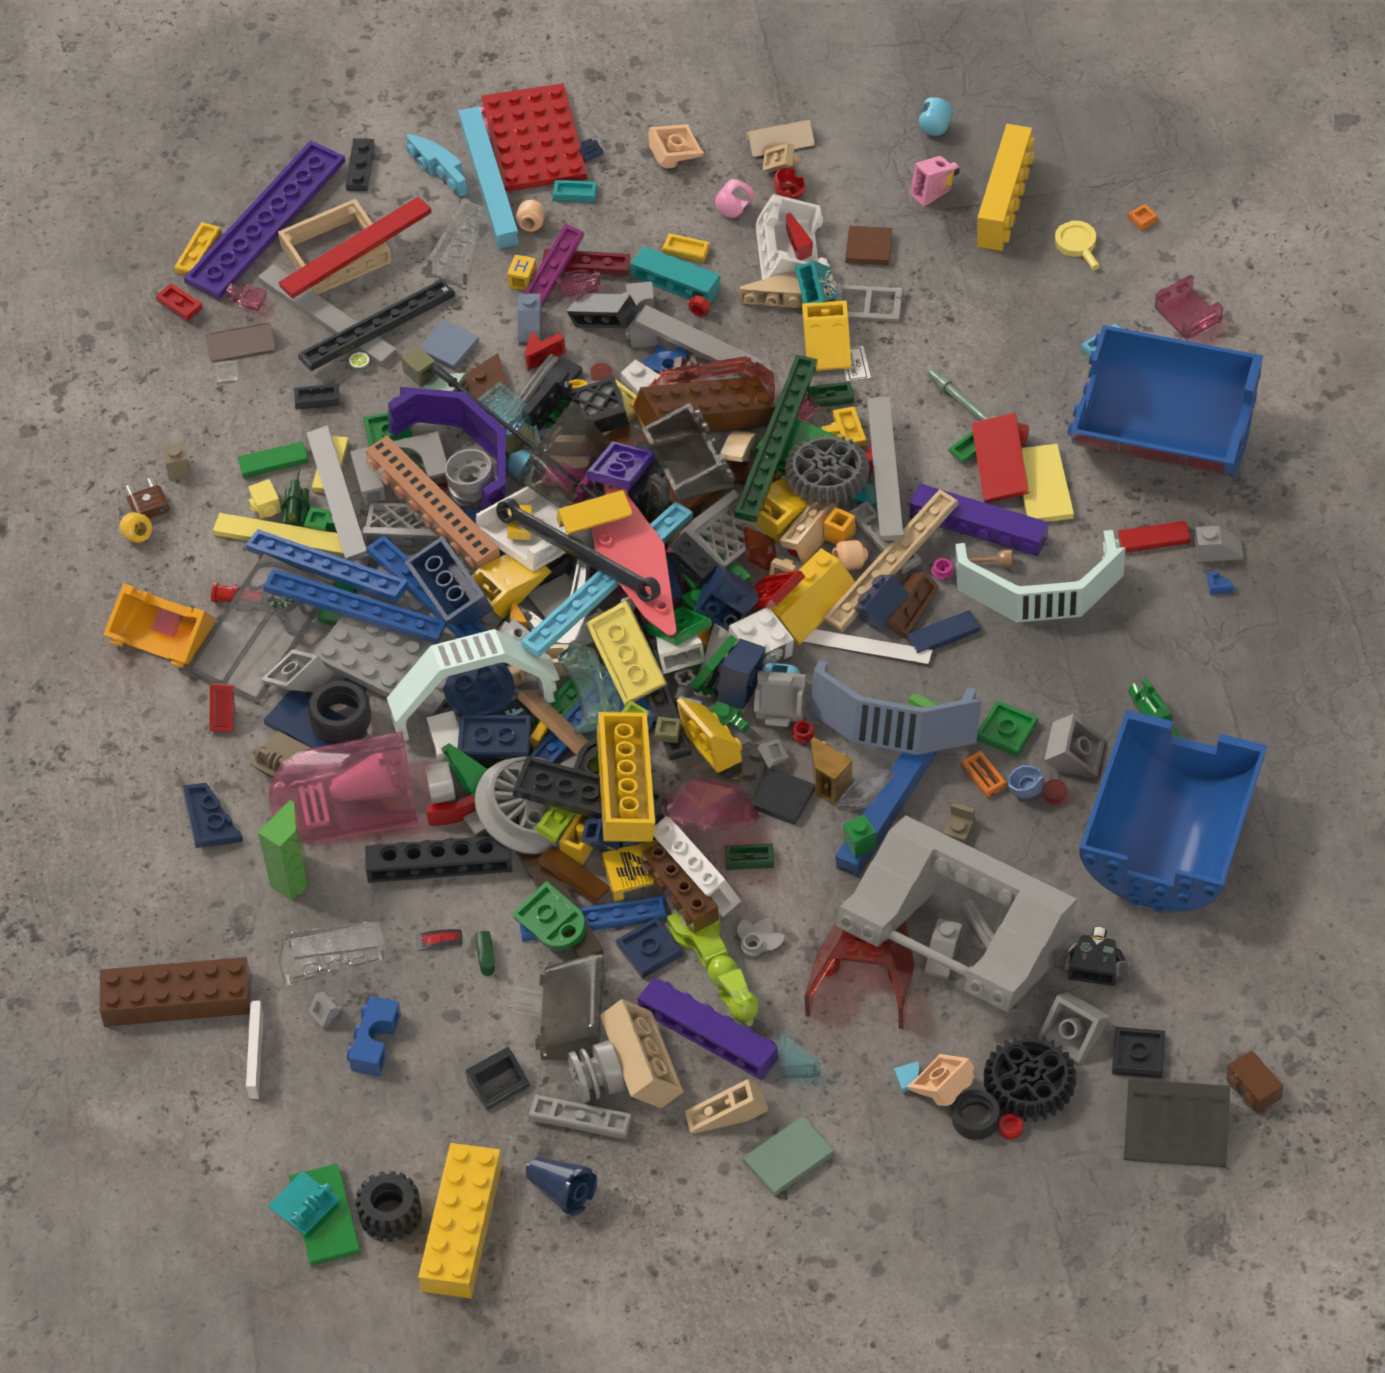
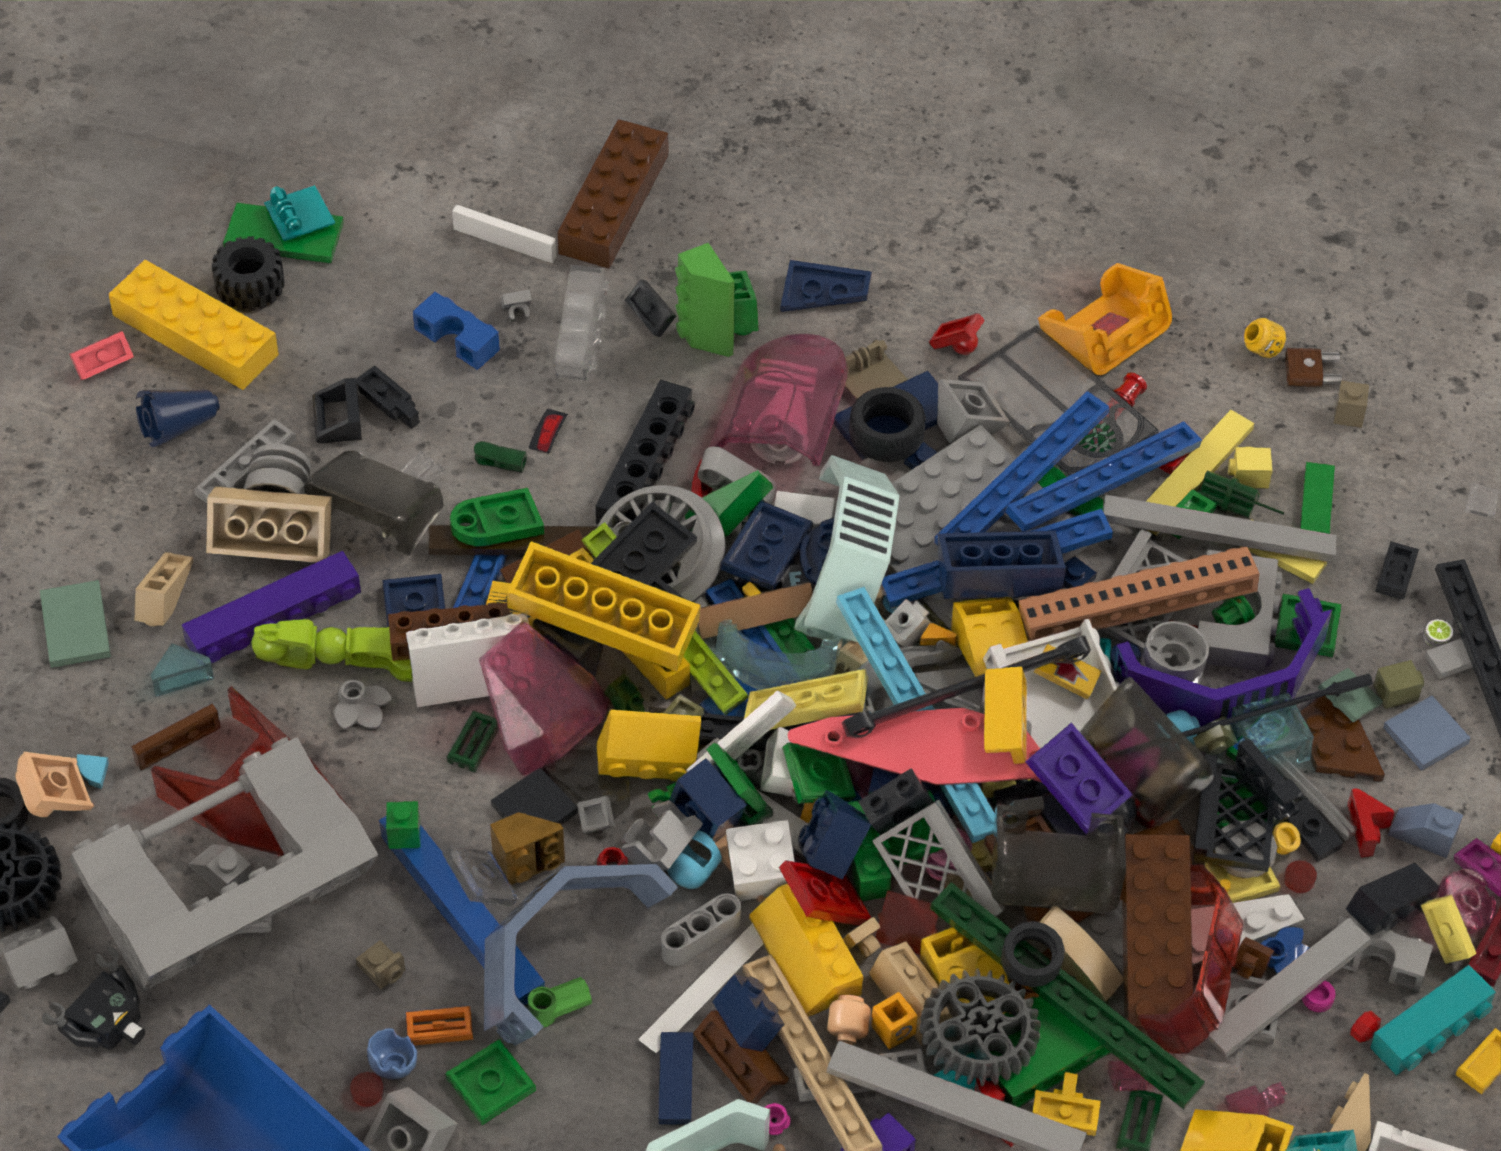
camera: 110 degrees right, 0 degrees up
(242, 868) = (744, 304): none -> green slope
(287, 916) = (650, 308): none -> black plate
(463, 1053) = (388, 396): none -> black hinge
(517, 1268) = (101, 355): none -> coral plate
(609, 280) = (1448, 929): none -> light yellow plate
(677, 672) = (753, 726): none -> white tile
(681, 767) = (625, 695): none -> dark green tile
(768, 438) = (1038, 932): none -> black tyre
(785, 346) = (1252, 1102): none -> clear pink plate
(841, 662) = (707, 917): none -> light grey beam
(853, 1031) = (176, 737): none -> reddish brown tile

